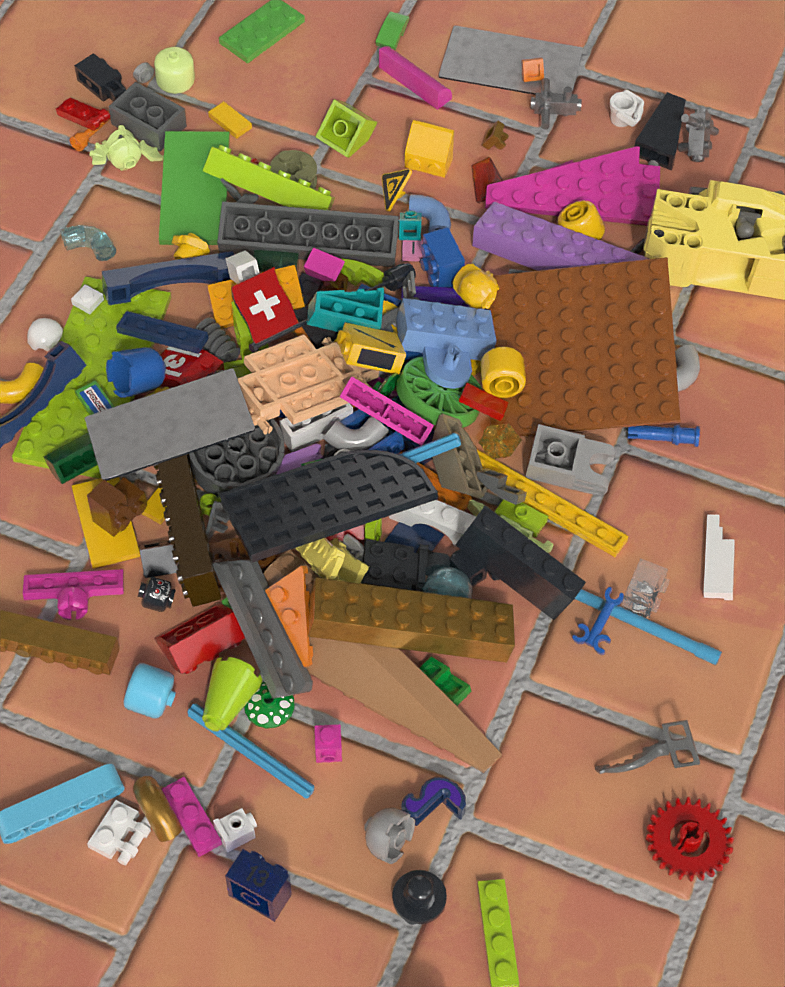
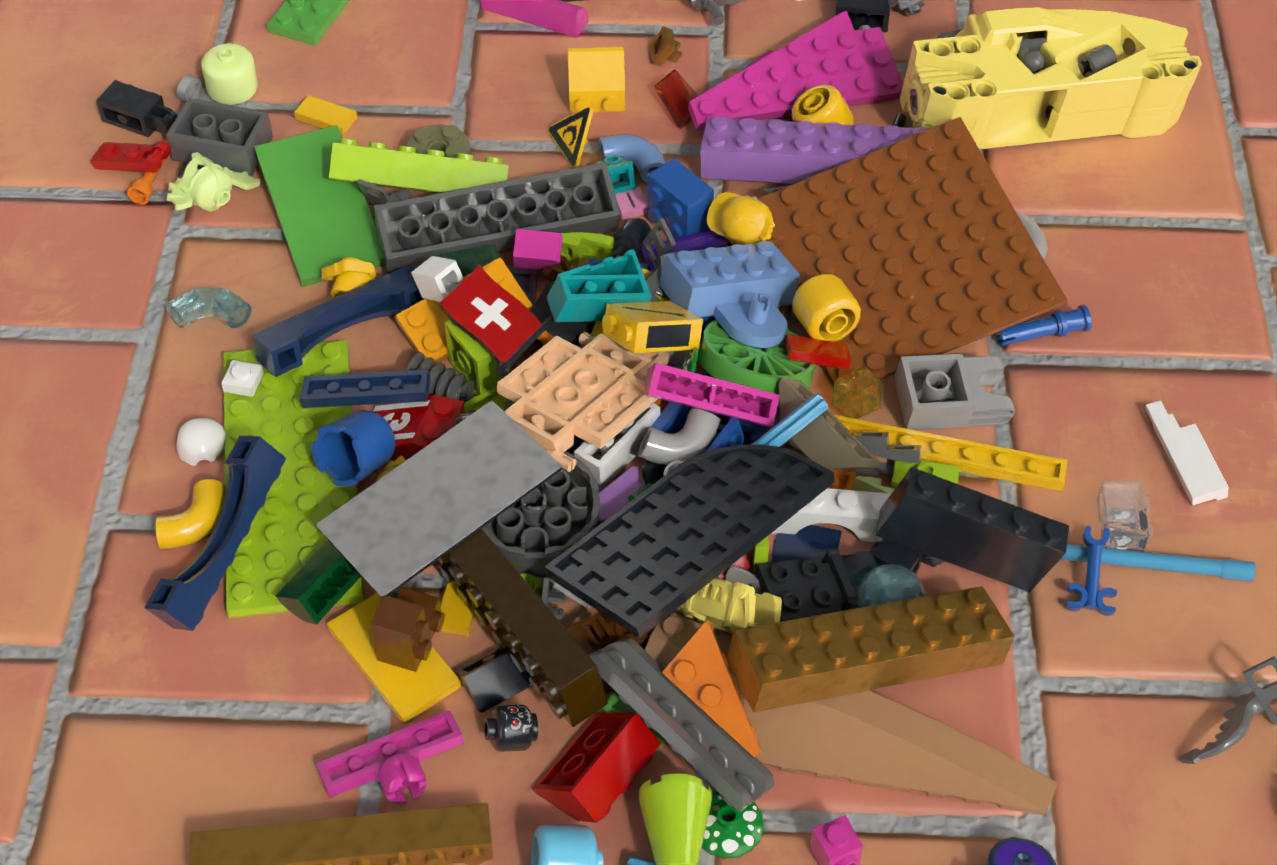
camera: 20 degrees left, 5 degrees down
(93, 398) = (310, 501): tile -> none
(345, 128) = (478, 86): lime slope -> none
(449, 684) = (930, 704): green slope -> none

